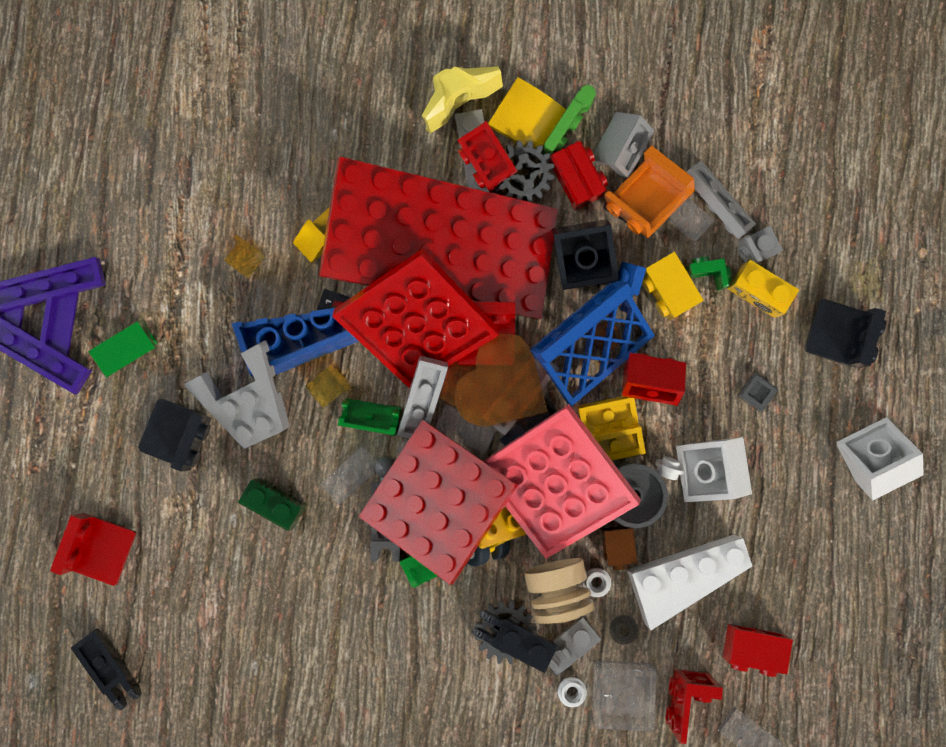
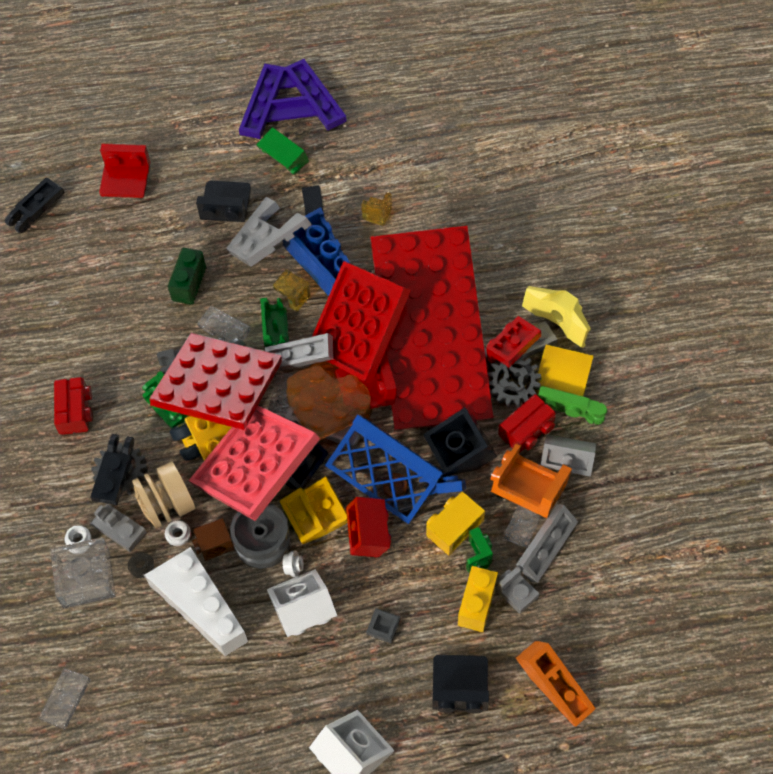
camera: 75 degrees right, 25 degrees down
(206, 330) = (312, 198): none -> black sticker
(408, 671) = (71, 406): none -> red brick
(682, 688) = (90, 618): red bracket -> none
(757, 649) = (145, 681): red brick -> none
(865, 240) = (555, 681): none -> orange slope

